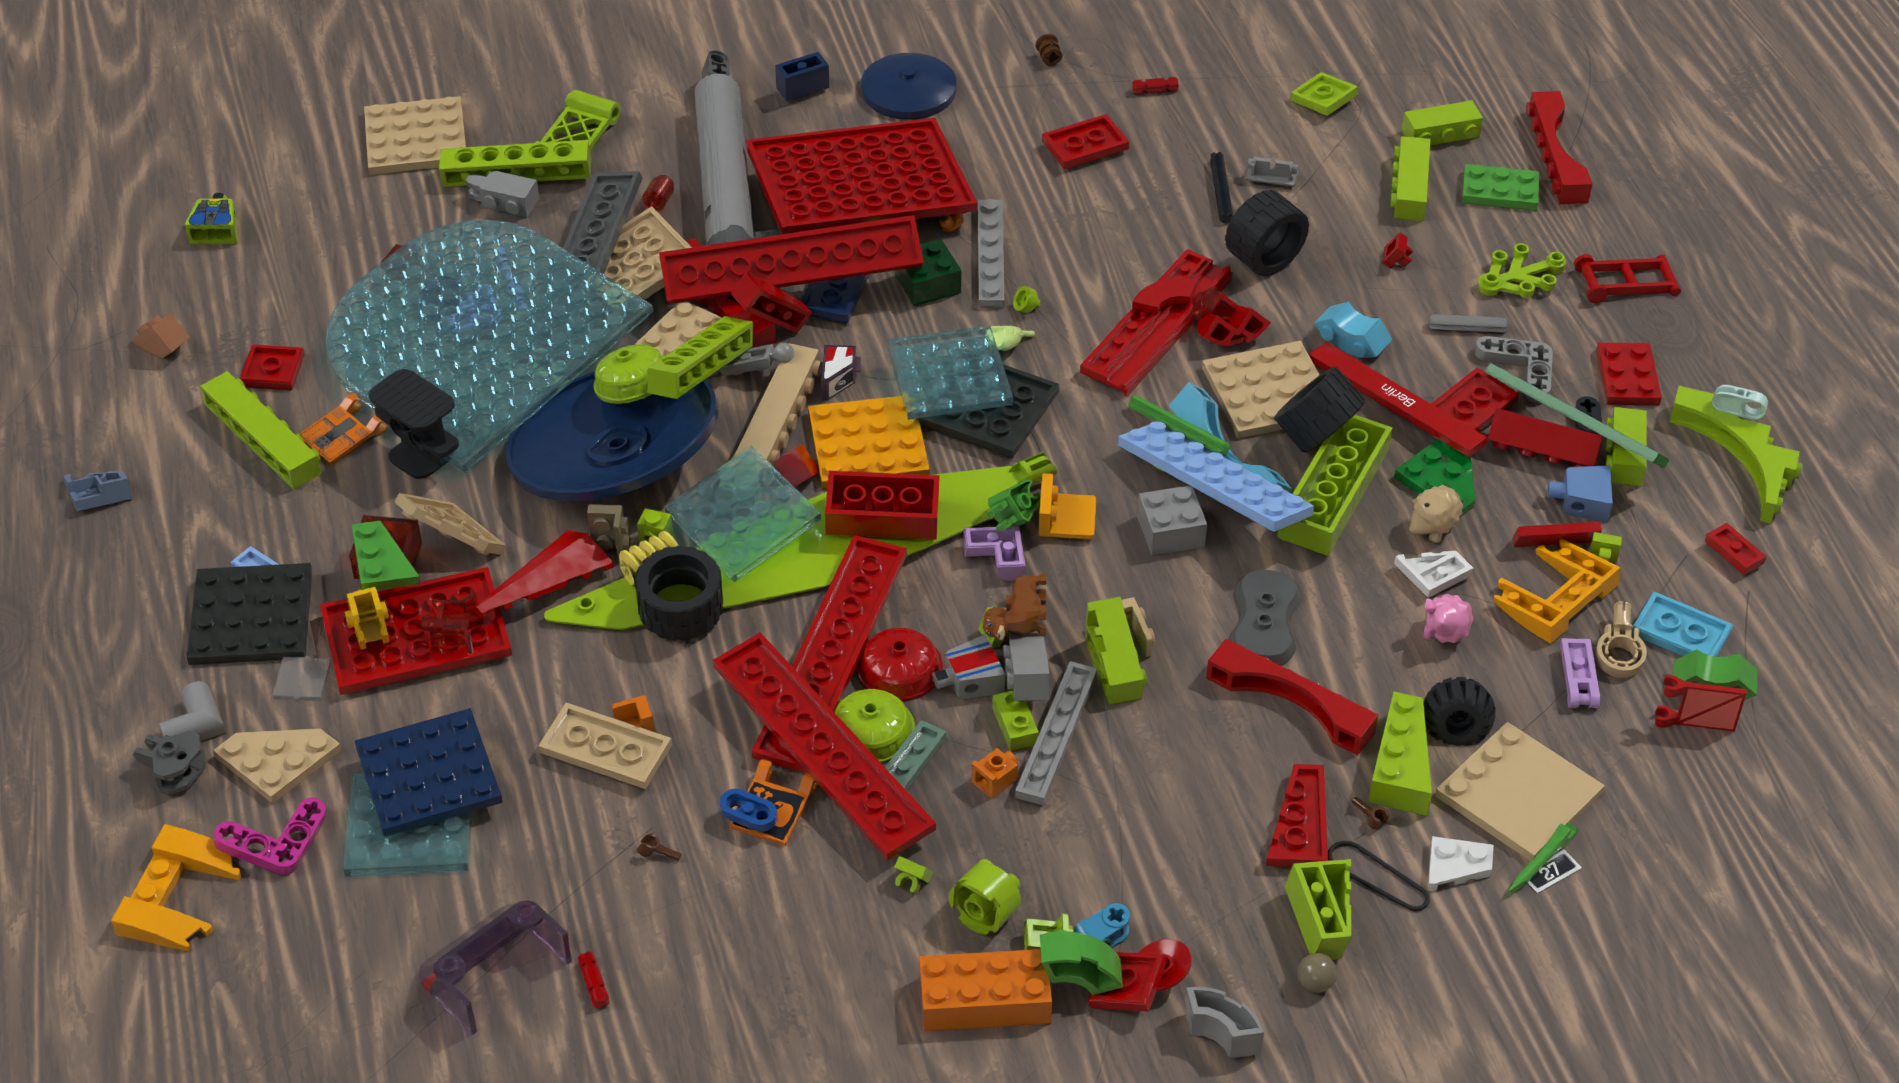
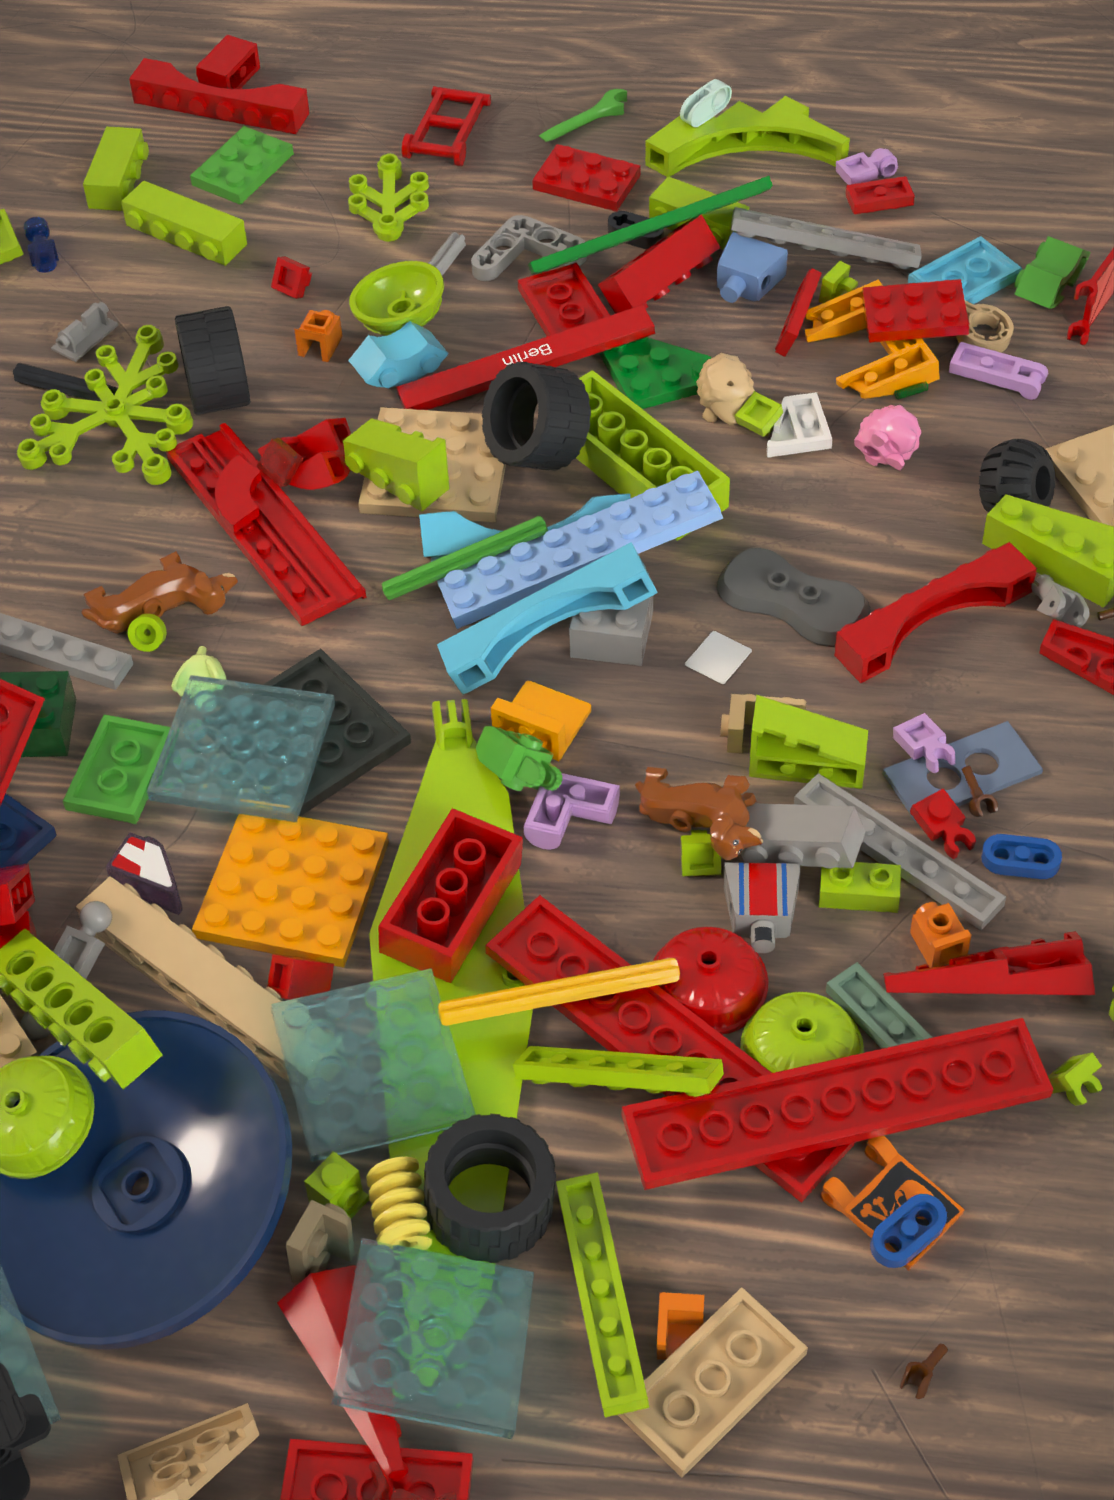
camera: 65 degrees left, 5 degrees up
(573, 604) = (434, 1339): none -> clear light blue plate
(637, 671) = (602, 1296): none -> lime plate
(792, 627) = (619, 1070): none -> lime plate
(834, 579) = (558, 991): none -> yellow axle
(907, 323) = (117, 769): none -> bright green plate
(982, 817) = (1026, 969): none -> red wedge
(1059, 291) = (158, 593): none -> dark orange animal
(1089, 804) = (1021, 856): none -> blue plate
(1096, 749) = (943, 818): none -> red plate
(1099, 459) = (483, 649): none -> medium azure arch
(1131, 774) = (977, 795): none -> reddish brown hand
(1162, 718) = (924, 738): none -> lavender plate
(1178, 783) = (1000, 742): none -> sand blue piece
(1183, 593) = (718, 657): none -> white sticker
(1204, 212) = (114, 411): none -> lime plant
(1235, 359) = (399, 462): none -> lime wedge
(1334, 123) = (41, 251): none -> clear blue leg
(1345, 763) = (1060, 602): none -> light grey piece
(1349, 284) = (320, 327): none -> orange window
(1405, 307) = (397, 295): none -> lime hat
(1423, 539) = (759, 414): none -> lime tile
(1520, 626) = (918, 390): none -> green leg
(1594, 596) = (915, 310): none -> red plate
(1595, 139) = (229, 64): none -> red brick
(1646, 524) = (836, 240): none -> light grey plate
(1719, 359) = (609, 105): none -> bright green piece
(1759, 527) = (864, 169): none -> lavender plate

